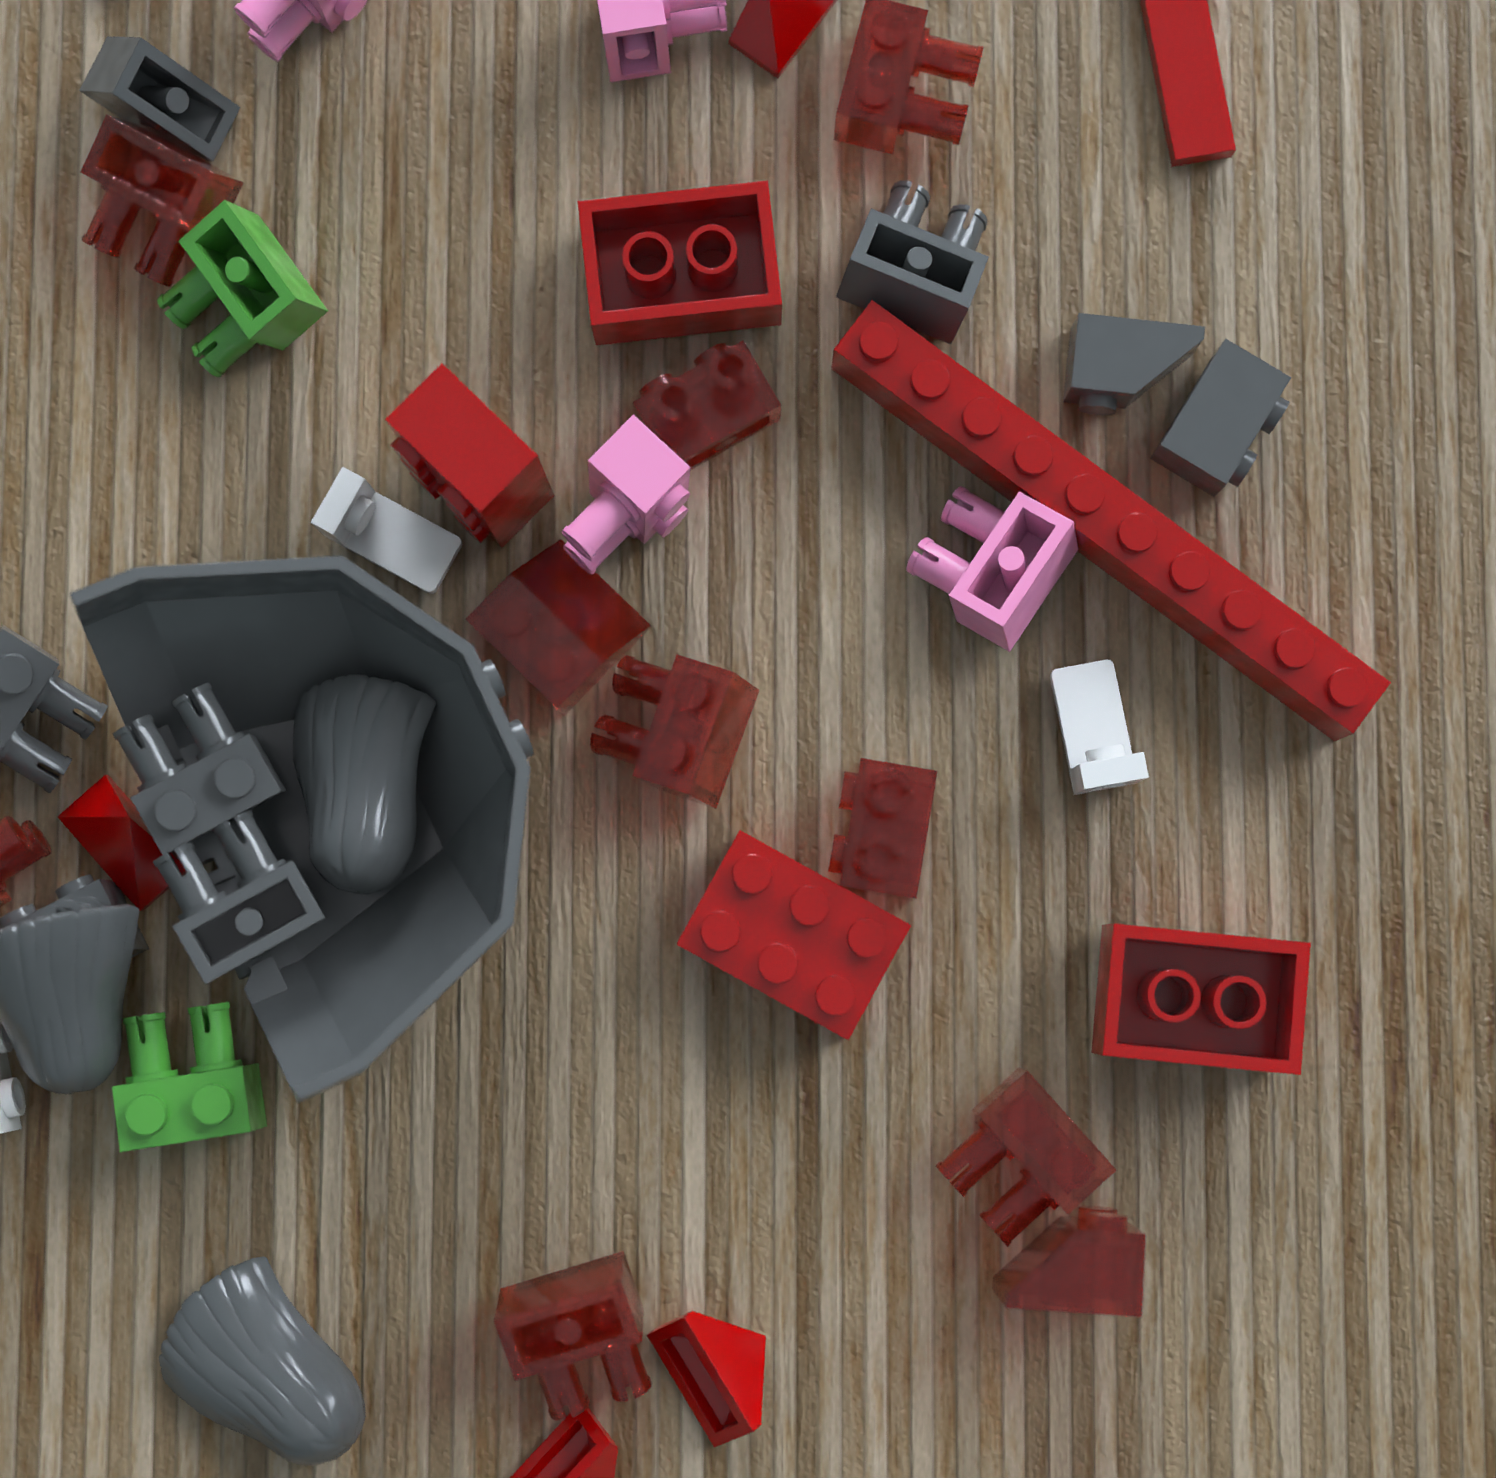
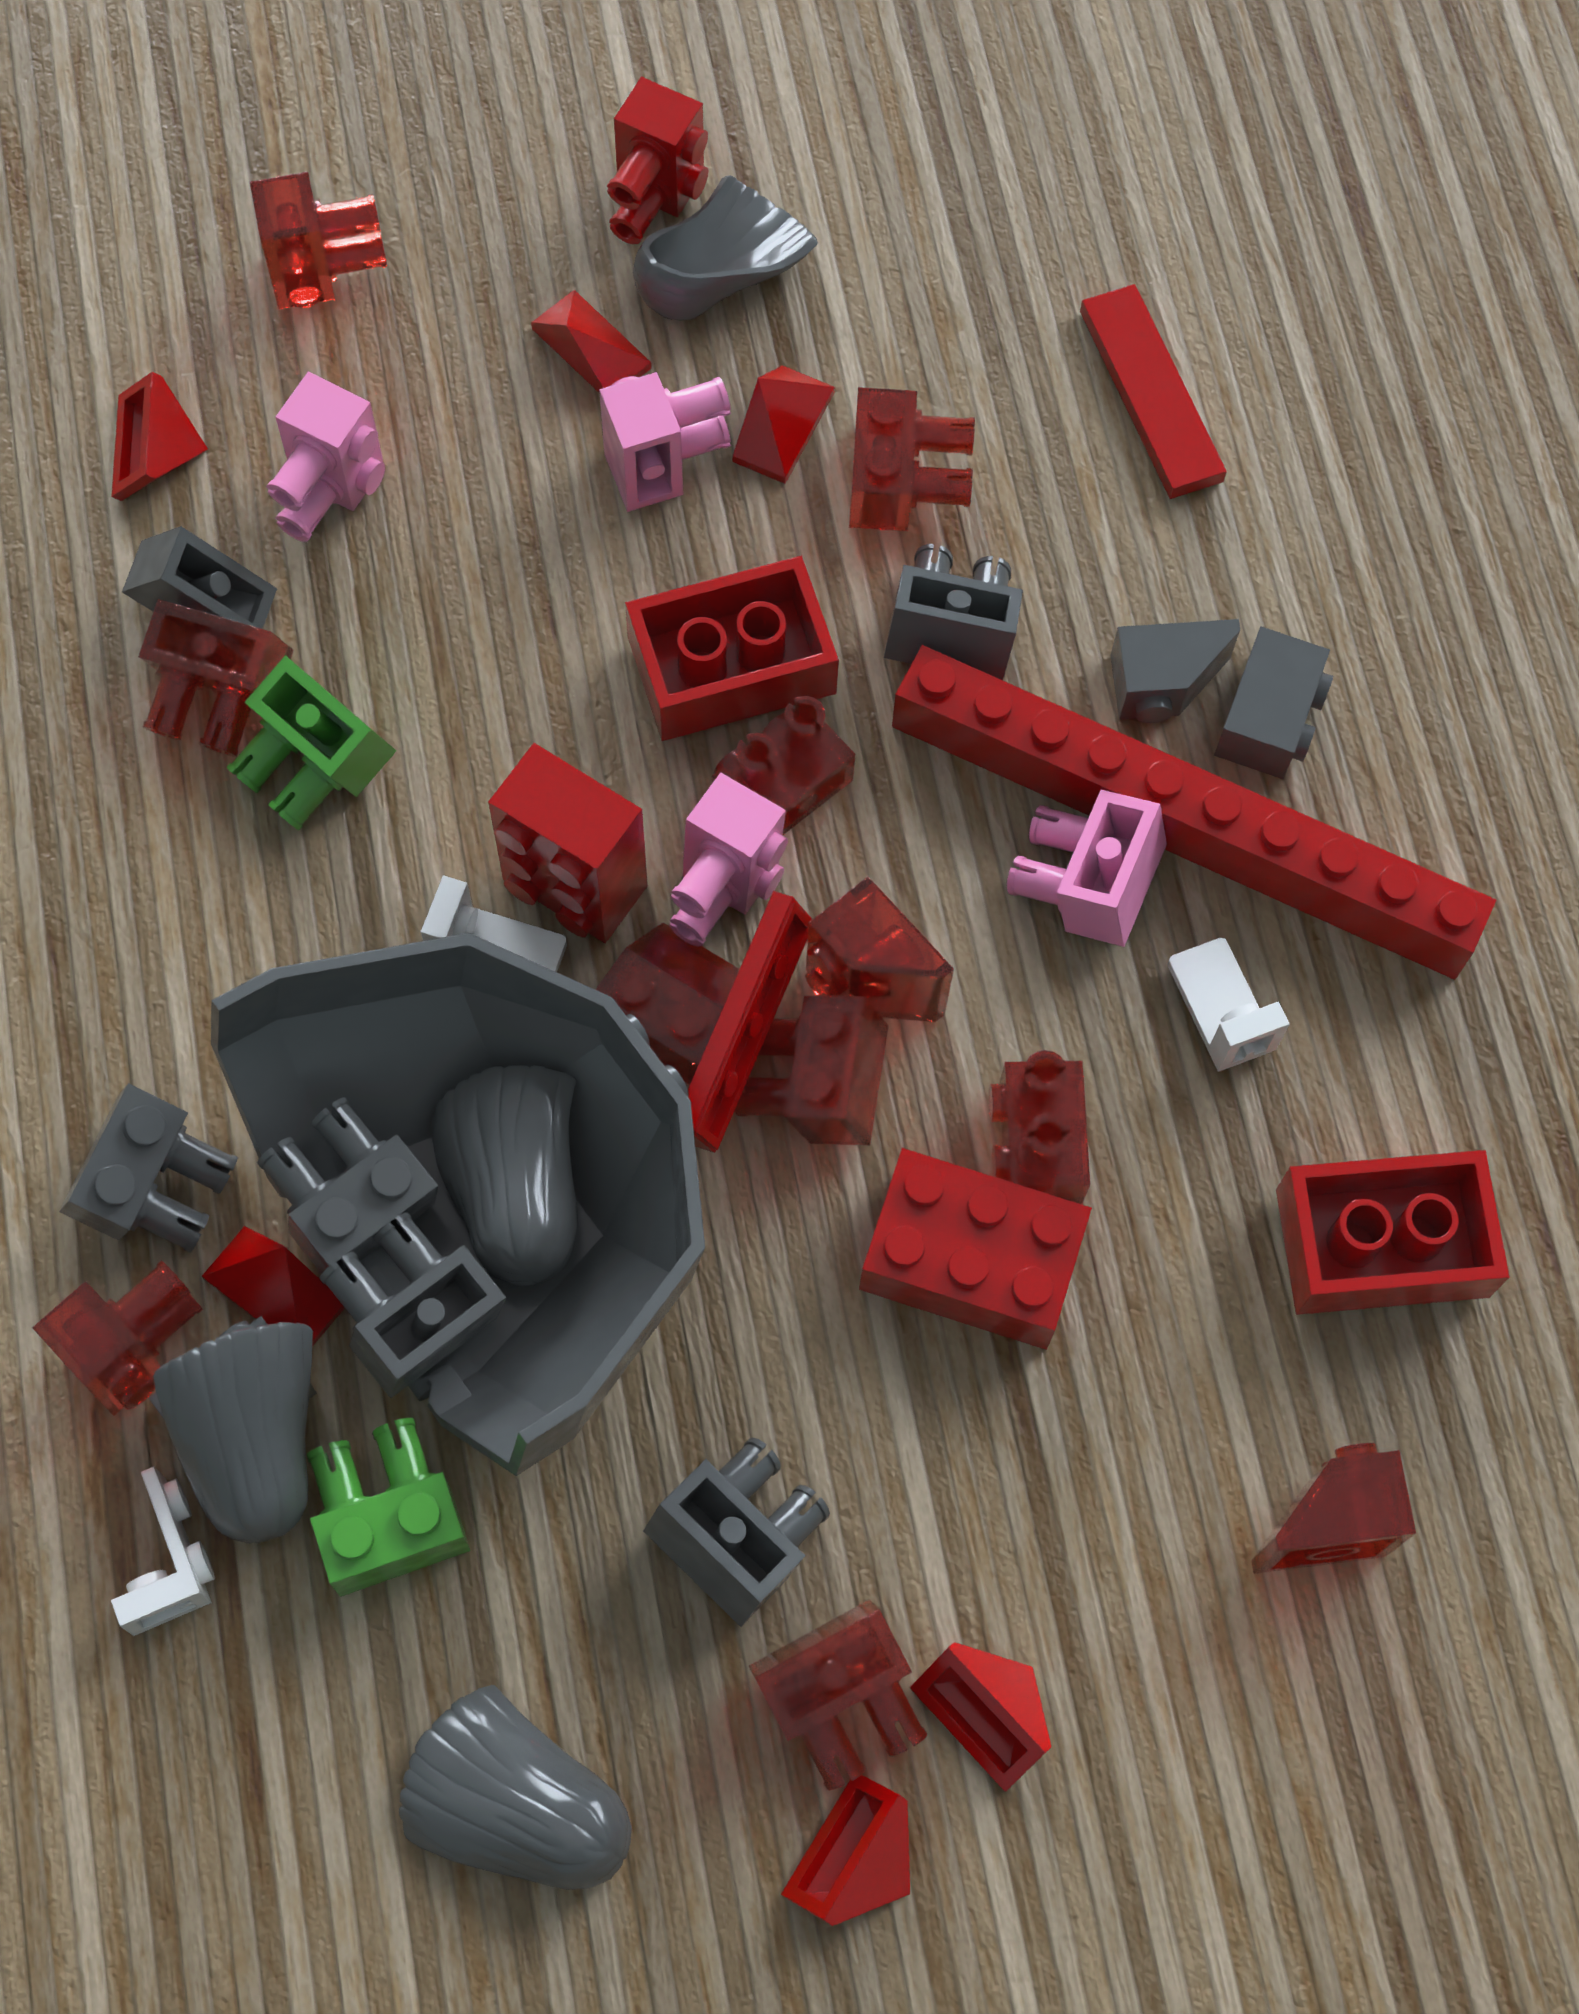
camera: 15 degrees left, 15 degrees down
(498, 1179) = (726, 1540): none -> dark grey brick
(613, 671) = (746, 1018): none -> red tile
(752, 626) = (875, 952): none -> clear red slope
(1054, 1155) = (1267, 1404): clear red brick -> none

